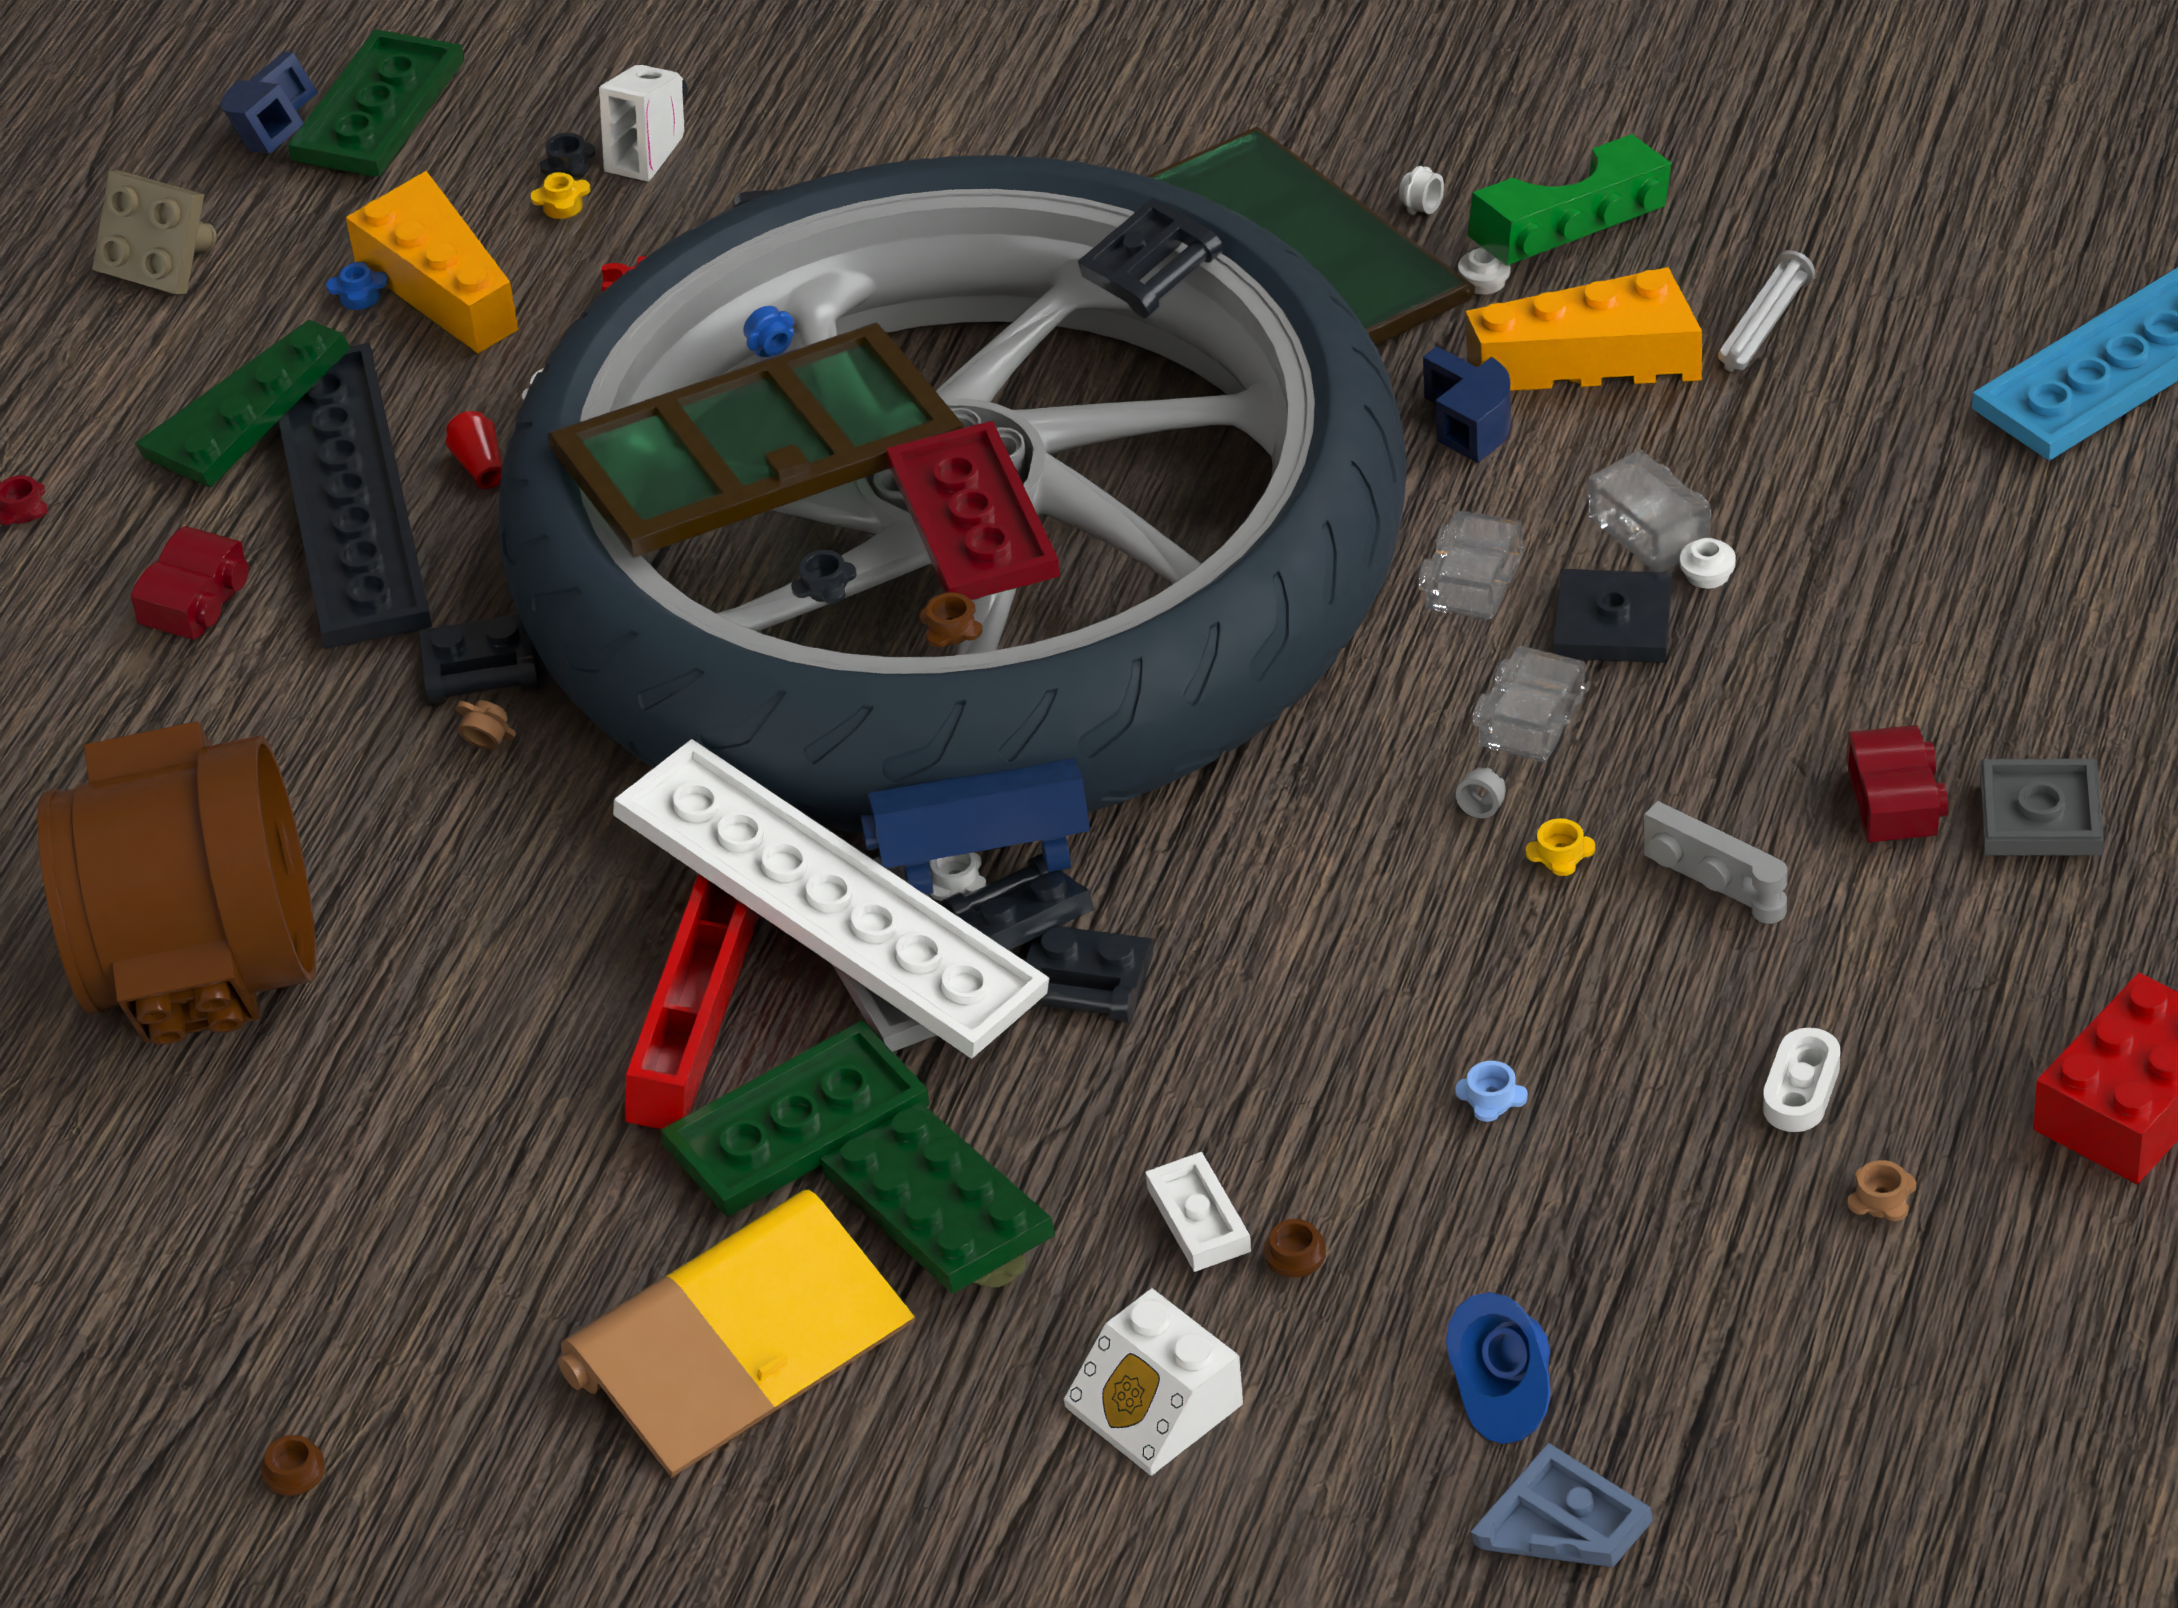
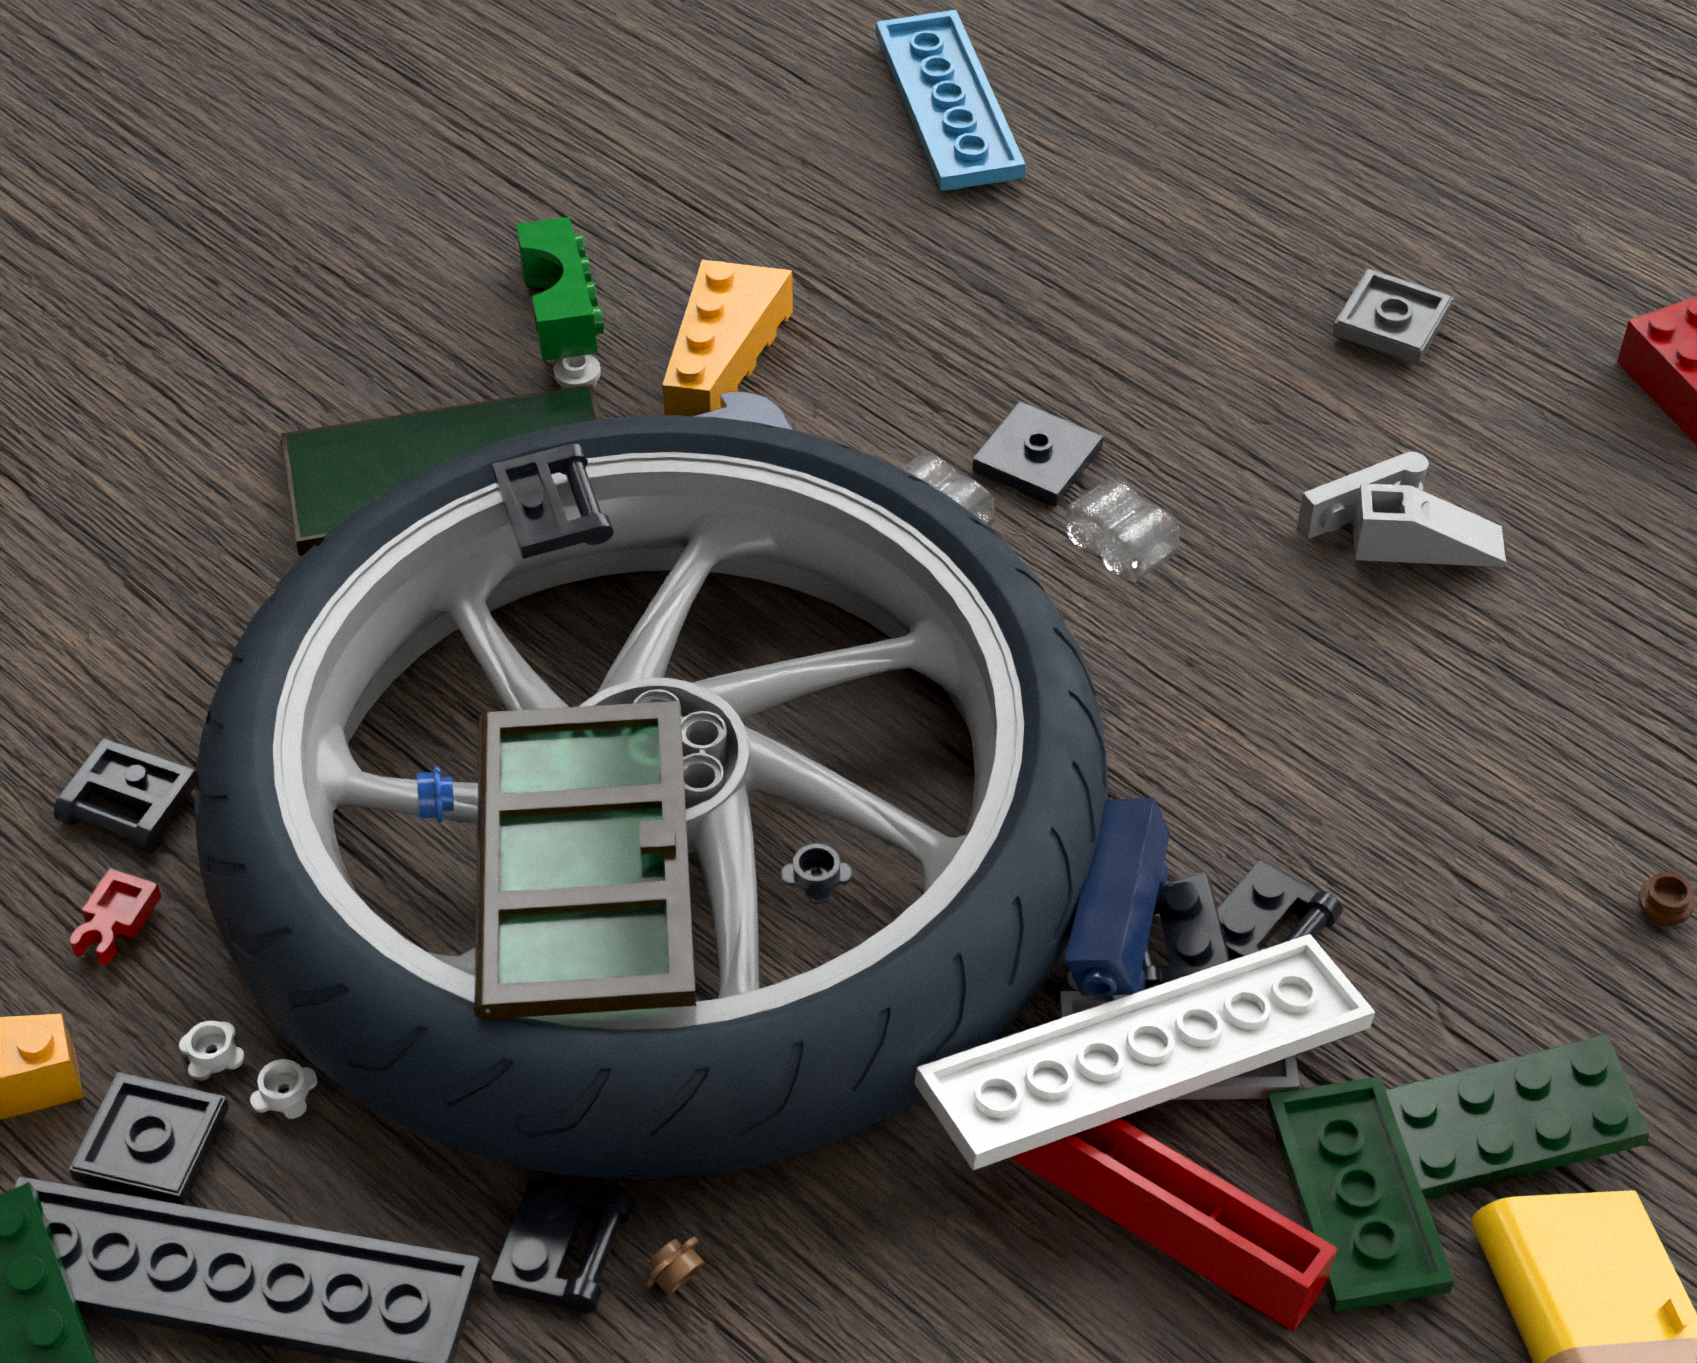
camera: 70 degrees left, 5 degrees up
(442, 387) = (149, 1138): none -> plate
(475, 445) = (253, 1139): red cone -> none
(950, 620) = (937, 789): reddish brown plate -> none
(973, 512) = (803, 735): dark red plate -> none
(1198, 1211) = (1602, 944): white plate -> none
(1421, 190) = (451, 369): white plate -> none
(1474, 804) = (1200, 597): light grey hinge -> none
(1491, 1090) = (1540, 714): light blue plate -> none
(1560, 846) = (1287, 576): yellow plate -> none
(1648, 509) = (946, 385): clear brick -> none
(1688, 916) = (1417, 527): none -> light grey slope
(1707, 562) = (1015, 381): white plate -> none
(1790, 274) = (724, 215): light grey axle -> none
(1795, 1090) = (1615, 539): white plate -> none
(1895, 783) = (1331, 374): dark red brick -> none

